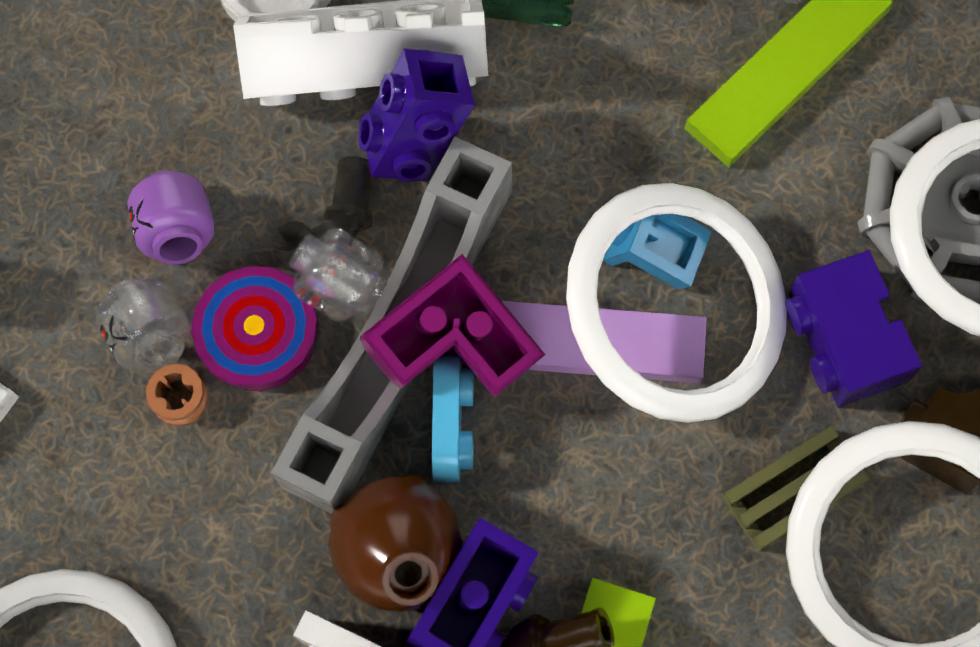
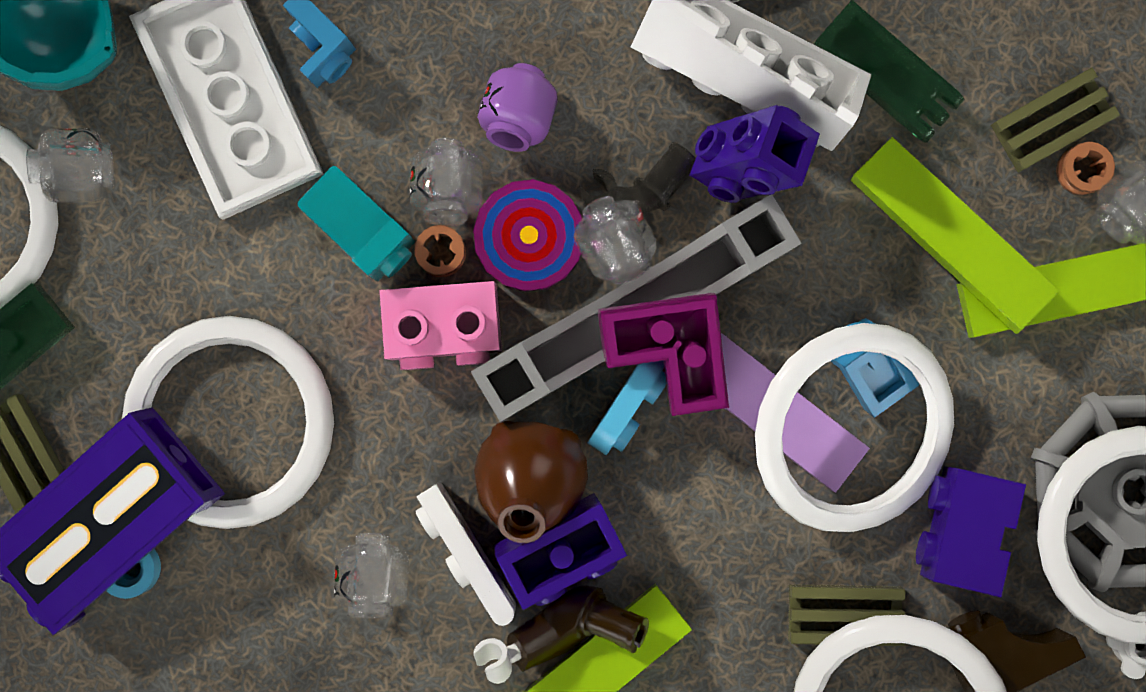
camera: 25 degrees right, 15 degrees up
(80, 418) = (357, 224): none -> teal bracket
(215, 458) = (440, 323): none -> bright pink brick
(650, 83) = (954, 235): none -> lime tile

